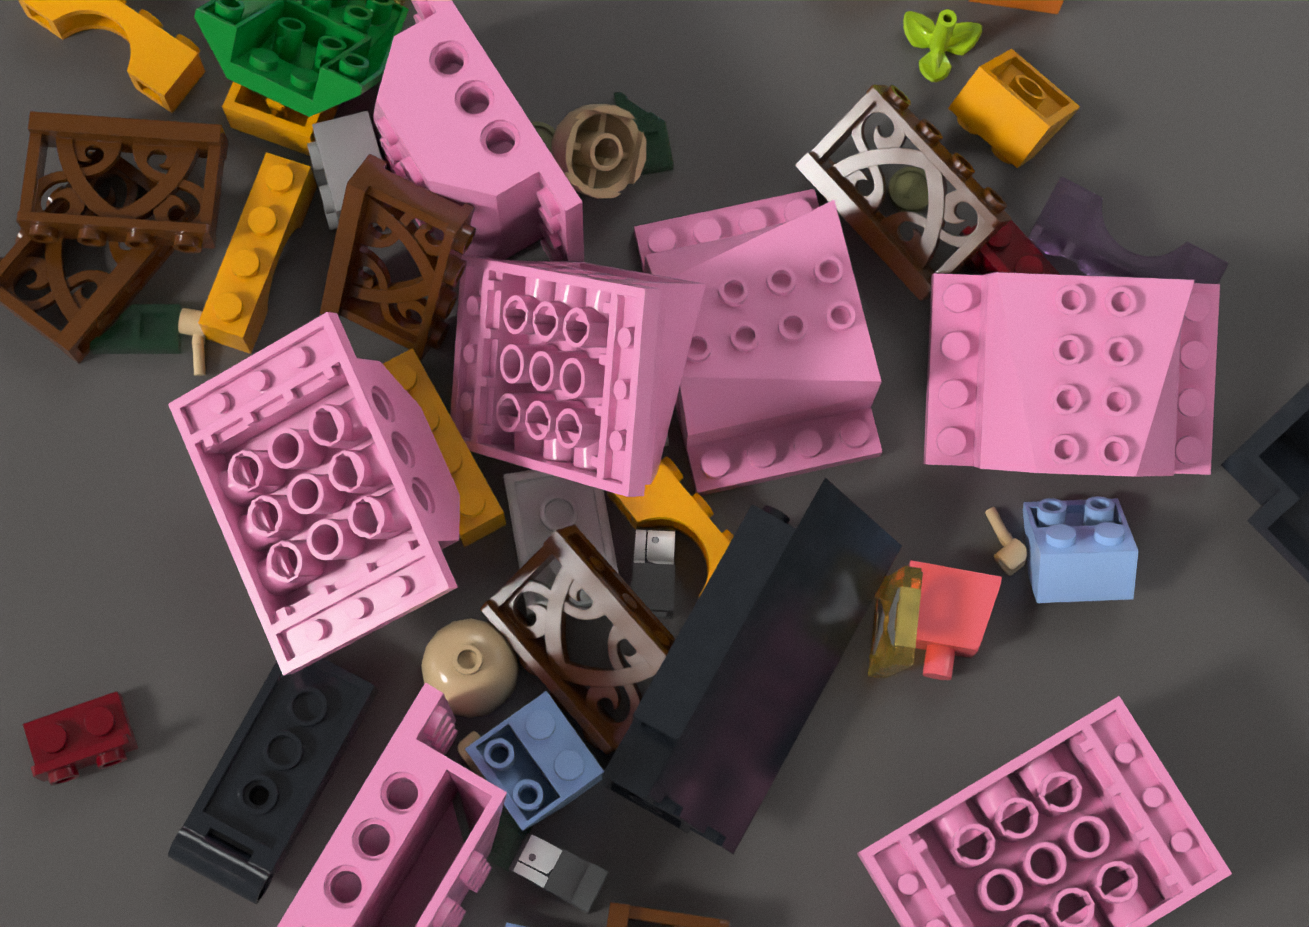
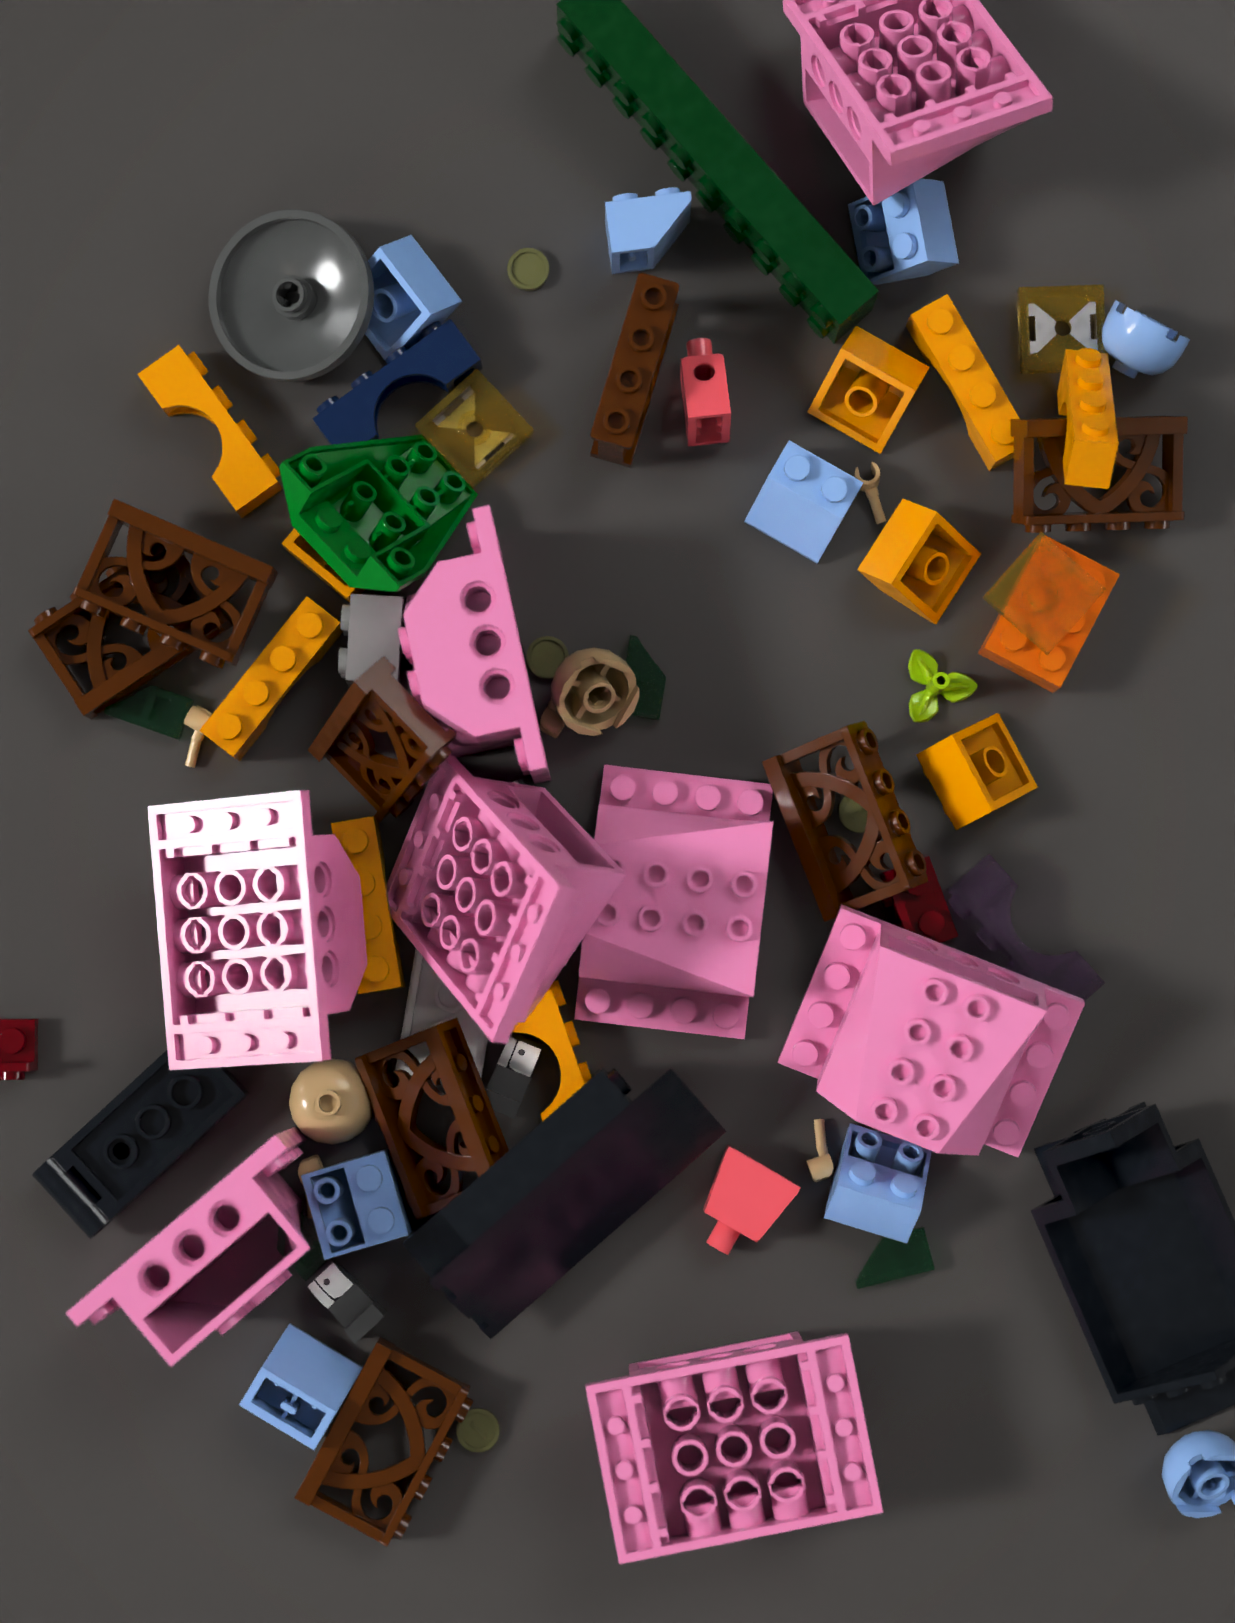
camera: 25 degrees right, 10 degrees up
(895, 623) = (695, 1196): clear yellow piece -> none
(1127, 623) = (896, 1259): none -> clear green tile

